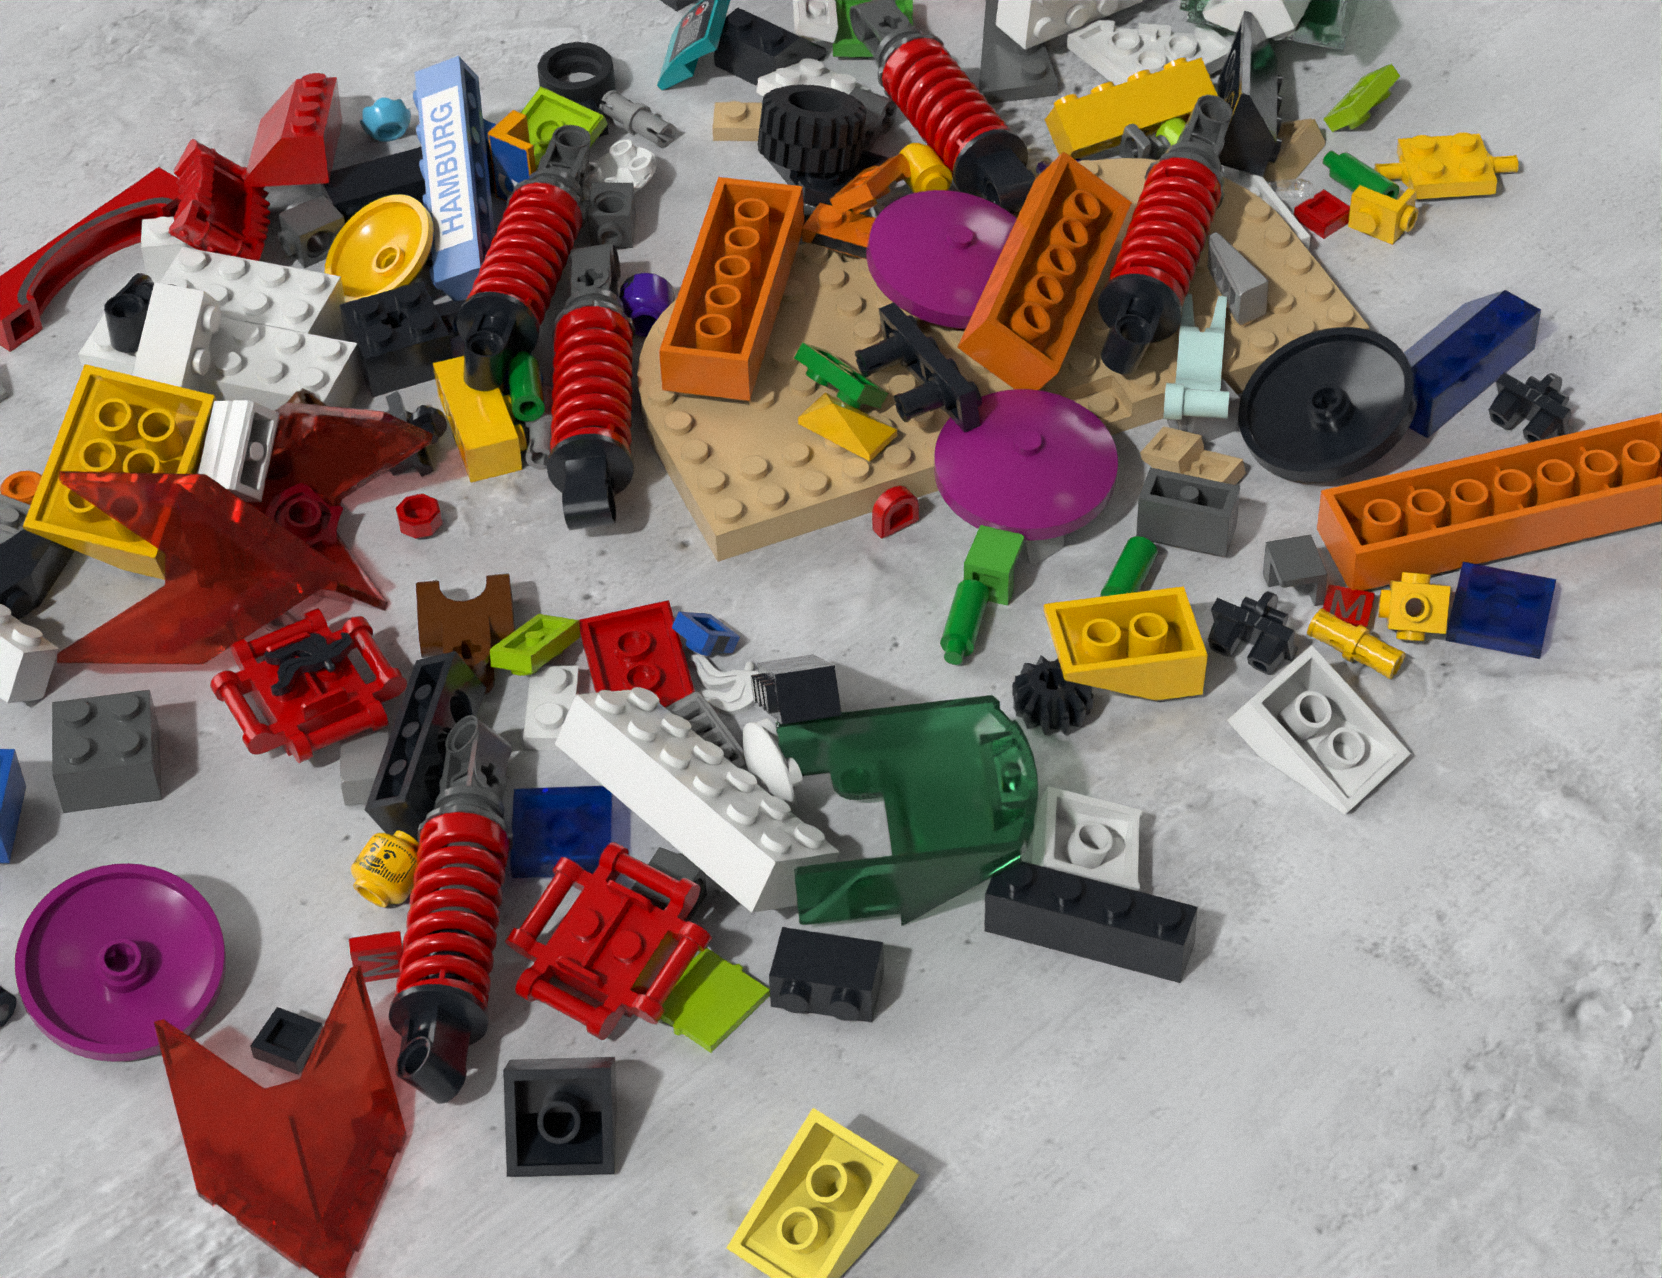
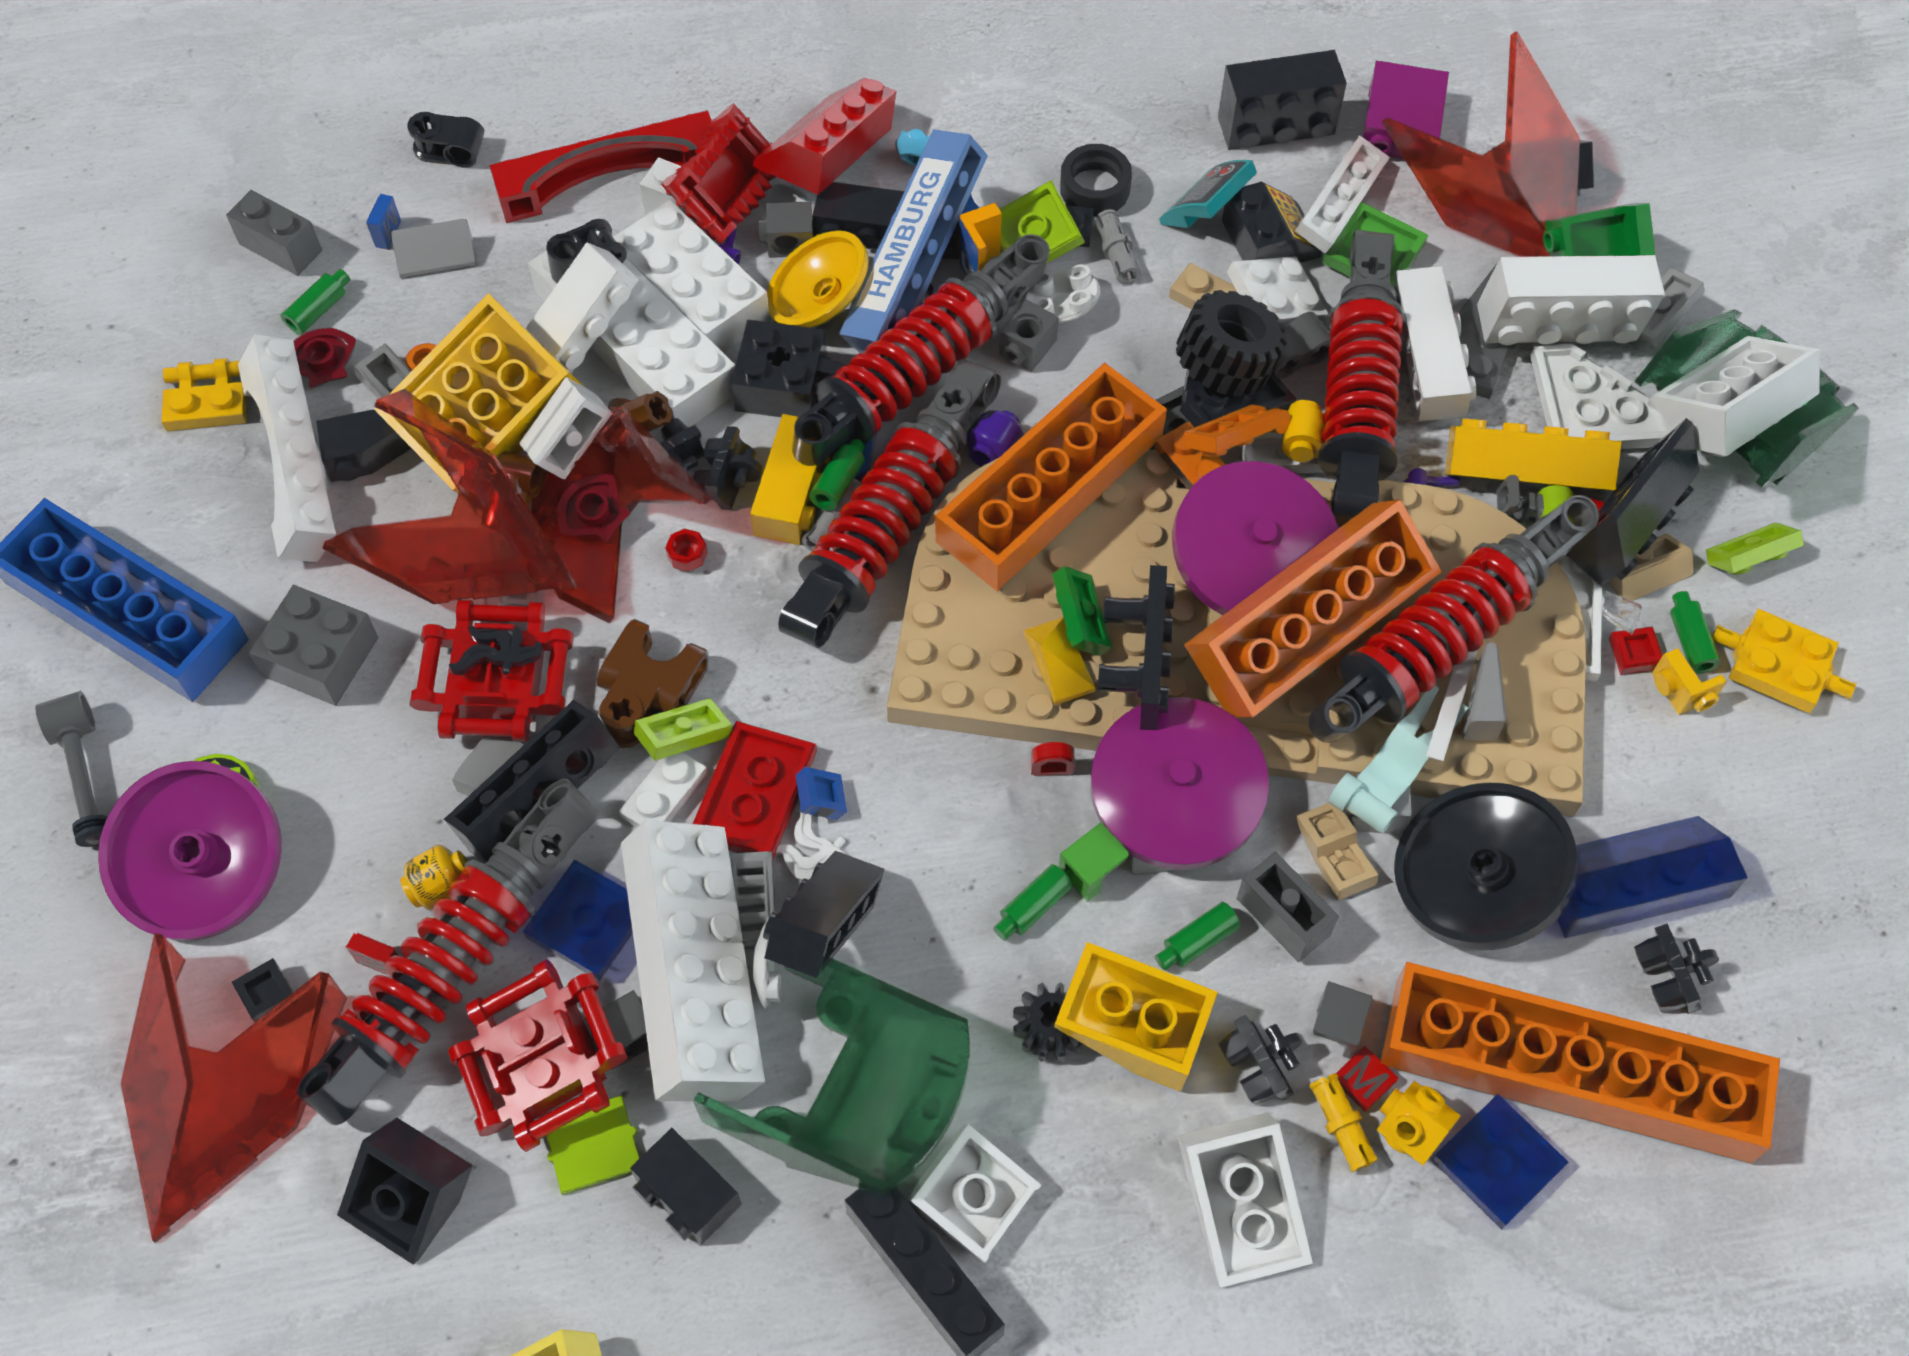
camera: 30 degrees right, 15 degrees up
(1000, 73) = (1432, 344): none -> white brick
(1214, 302) = (1450, 708): none -> white sticker

